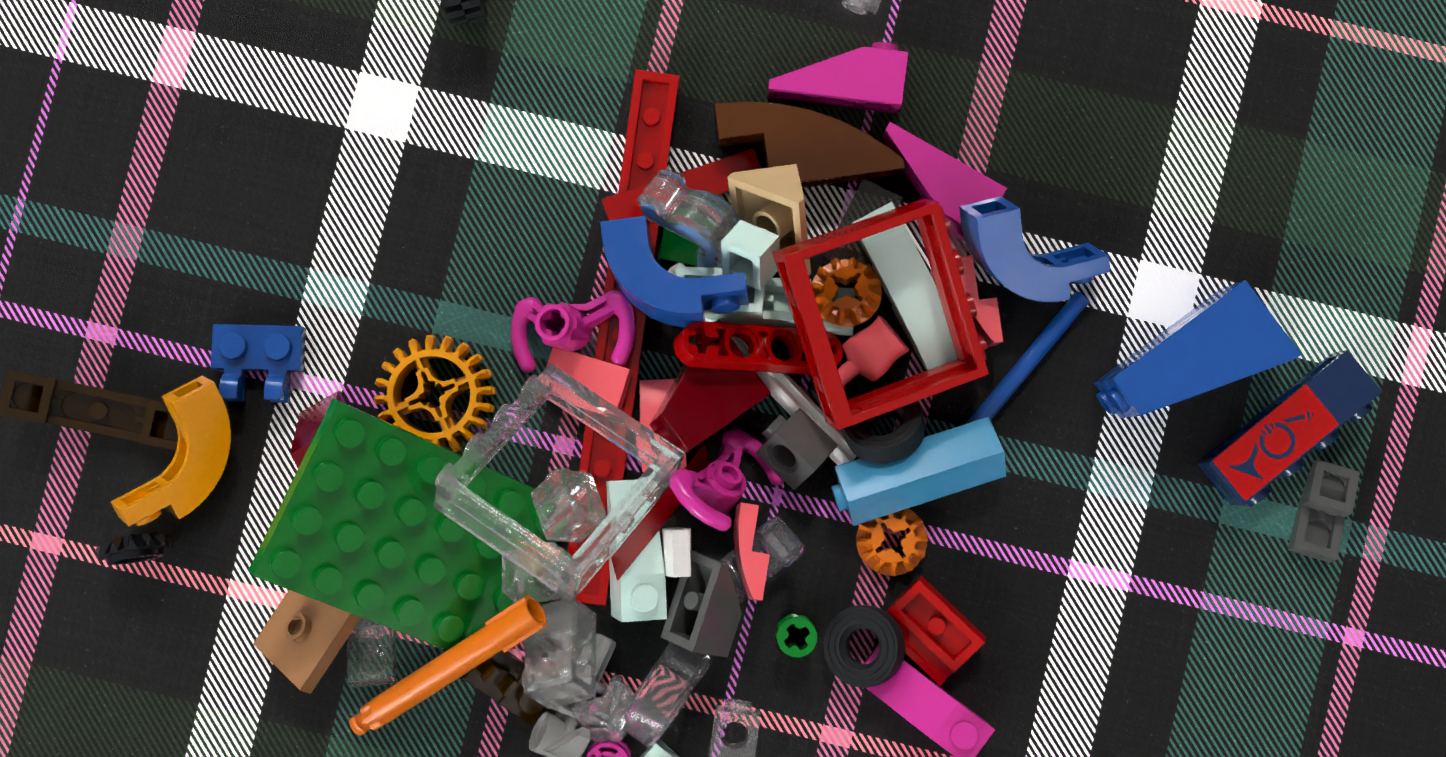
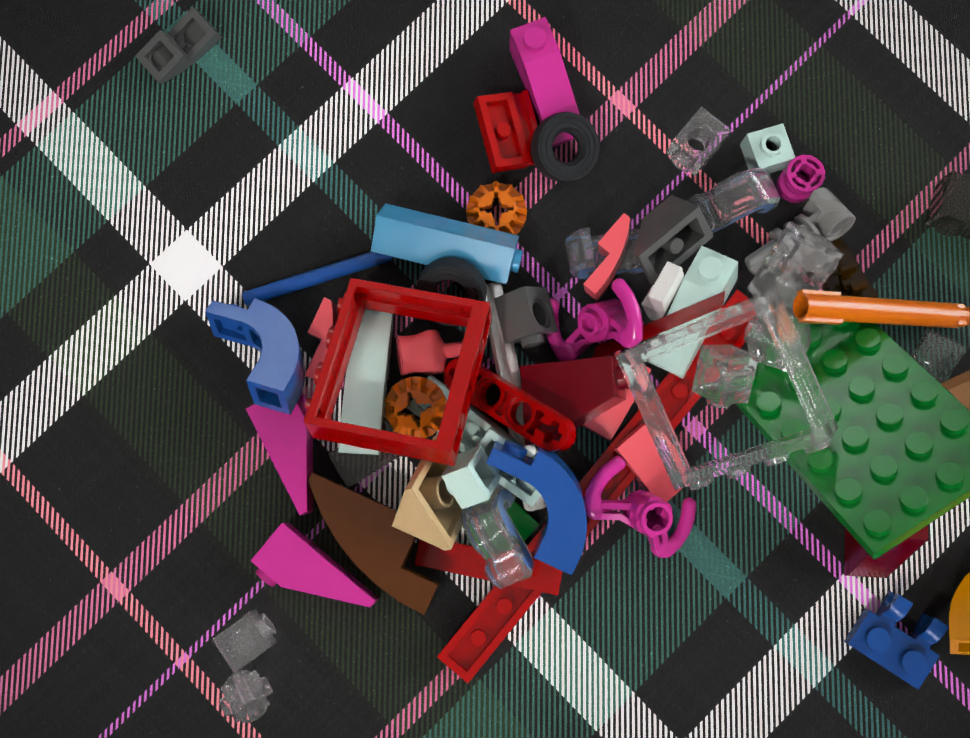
camera: 145 degrees left, 5 degrees down
(426, 375) = (809, 528): light orange gear -> none
(606, 714) = (786, 204): clear piece -> none
(810, 636) = (619, 180): green bush -> none
(1203, 350) = (190, 200): blue slope -> none
(1290, 428) = (161, 113): brick -> none

